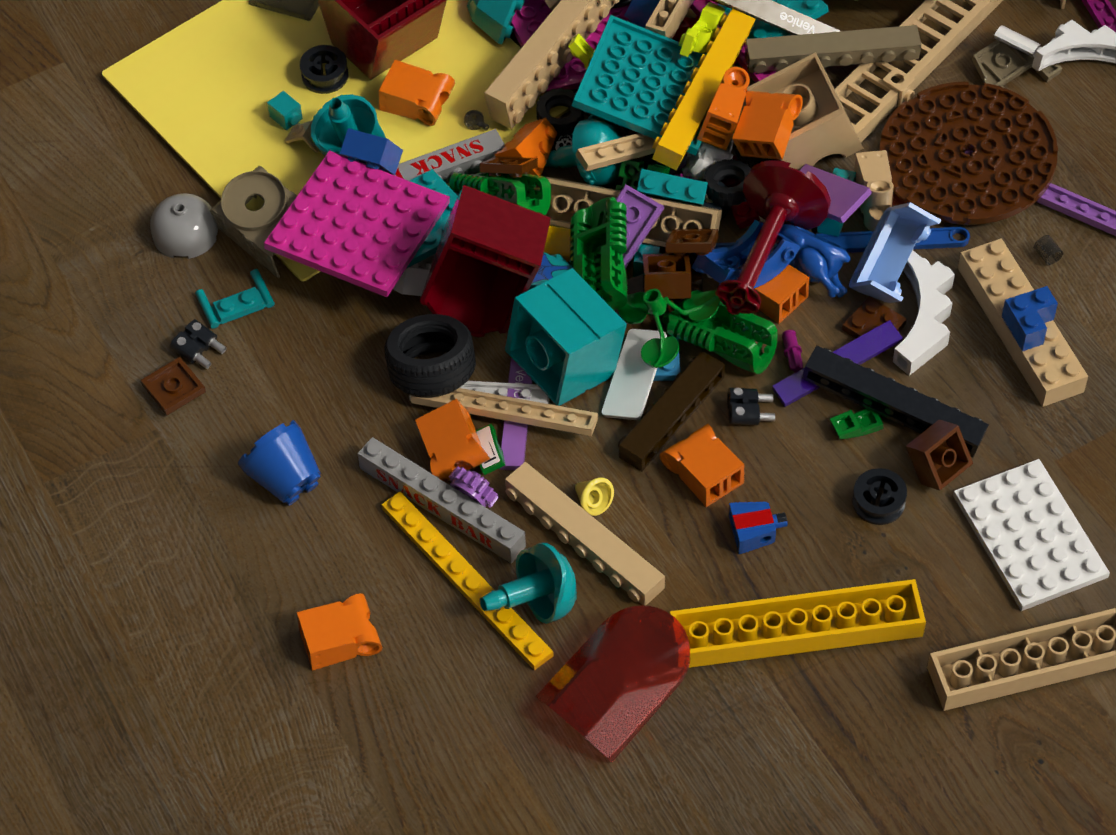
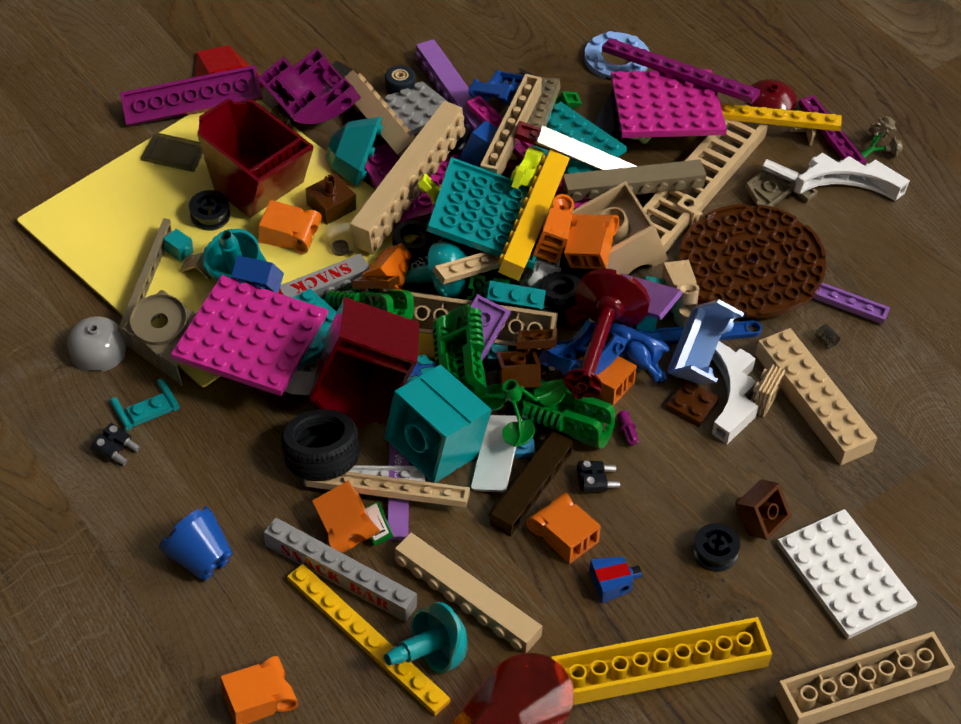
camera: 10 degrees left, 5 degrees down
(173, 386) = (95, 481): reddish brown plate -> none
(248, 139) = (148, 271): none -> dark tan tile
(467, 59) = (331, 198): none -> reddish brown brick
(473, 486) = (368, 556): medium lavender gear -> none
(595, 495) = (473, 558): light yellow hat -> none
(855, 425) = (689, 487): green slope -> none
(858, 351) = (666, 437): dark purple tile -> none
(887, 396) = (712, 461): black brick -> none
(964, 312) = (767, 389): none -> tan brick
(1027, 316) = (823, 390): blue brick -> none

